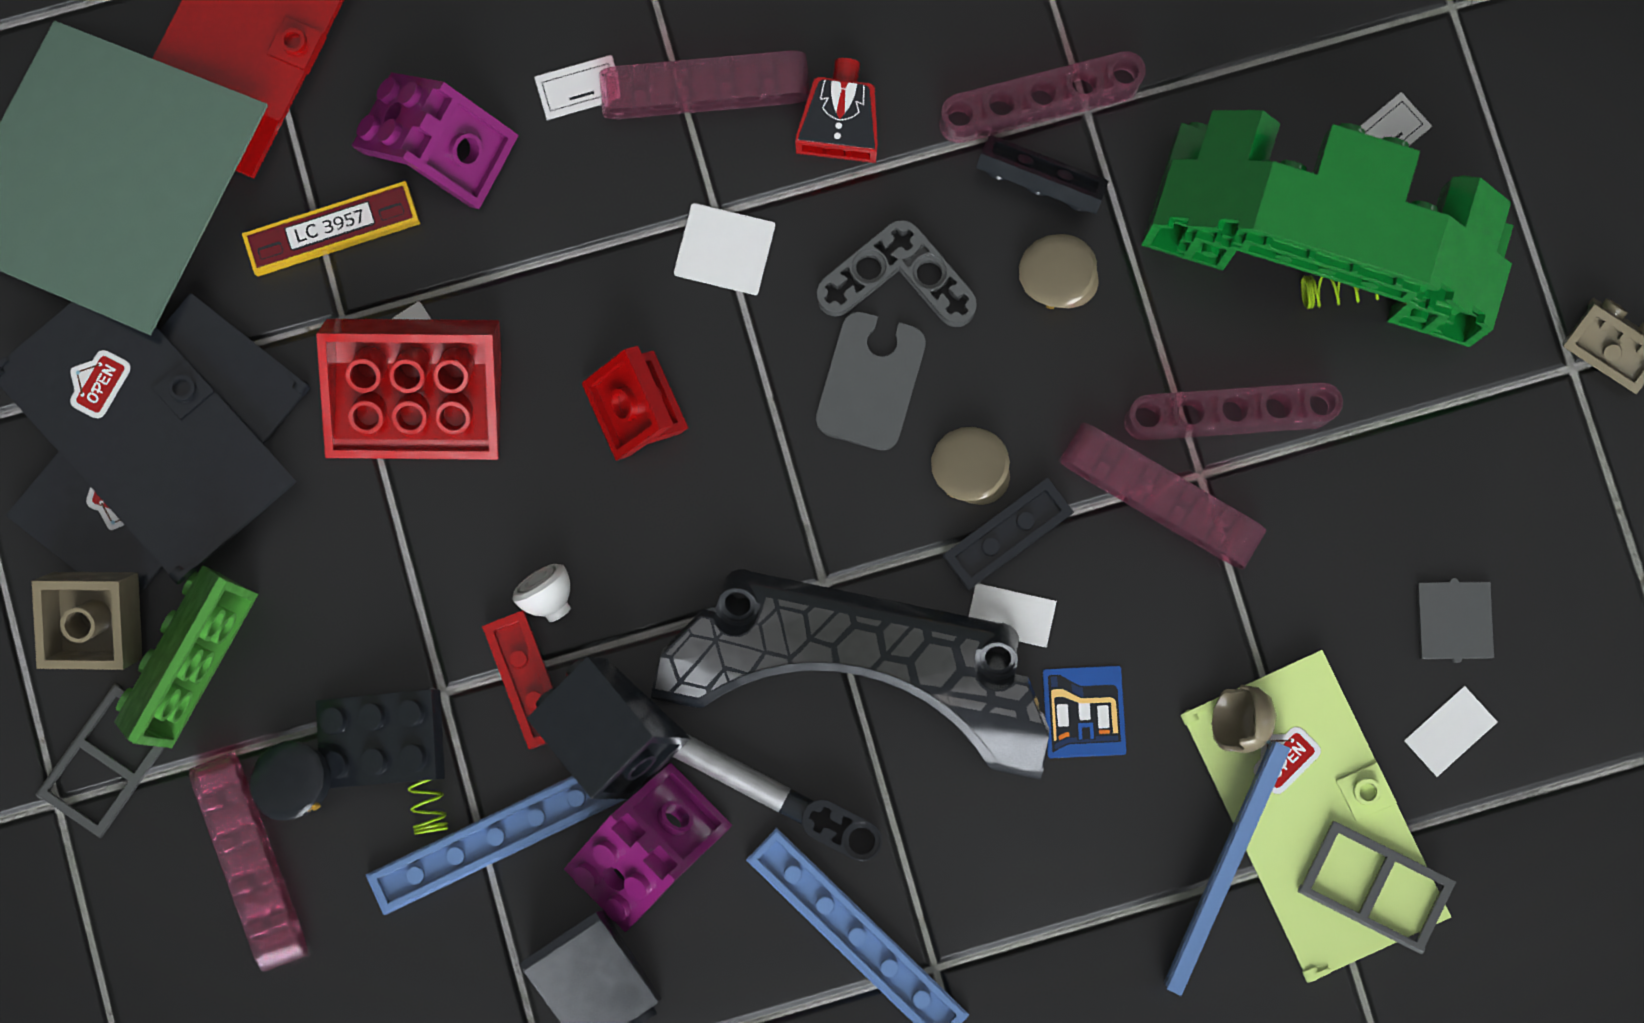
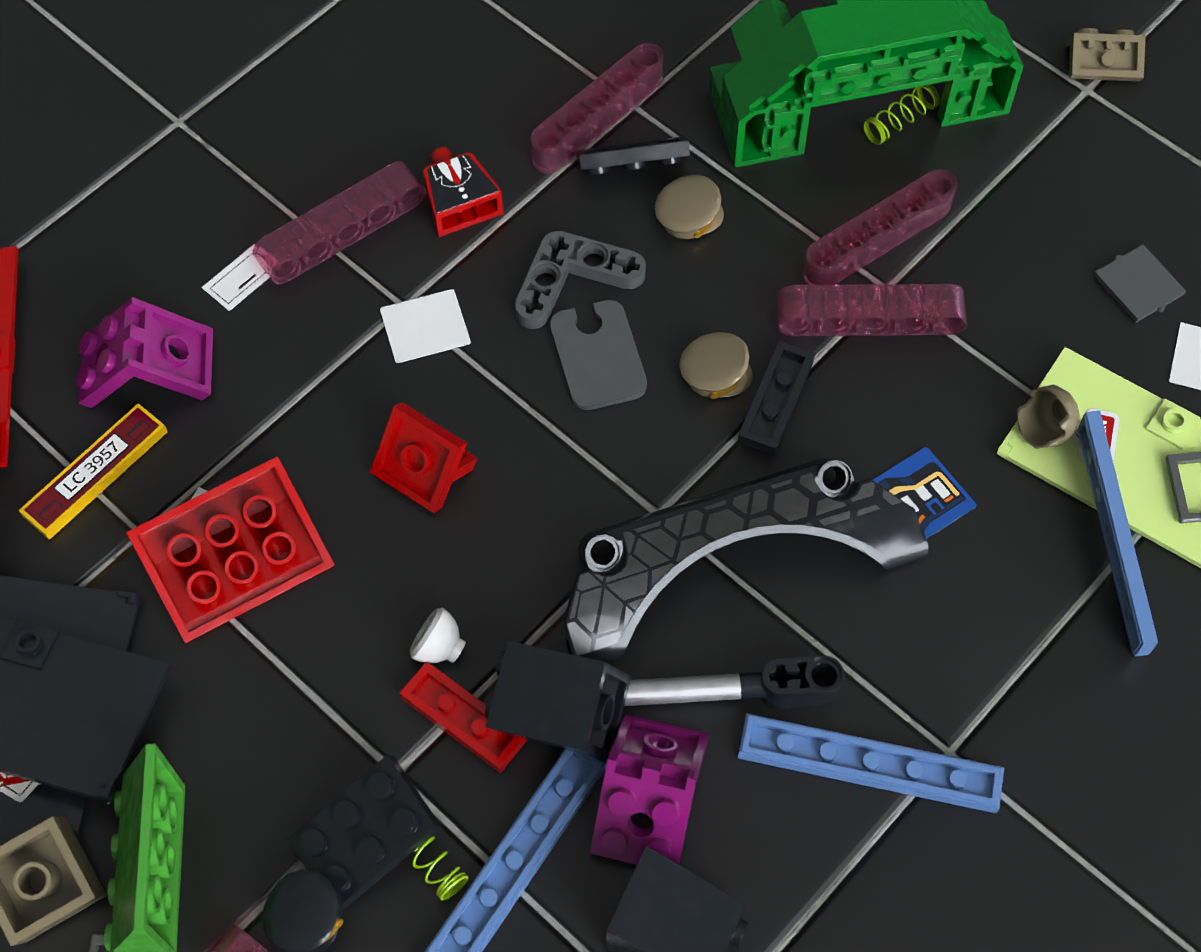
camera: 30 degrees left, 20 degrees down
(1025, 613) = (831, 446): white sticker -> none

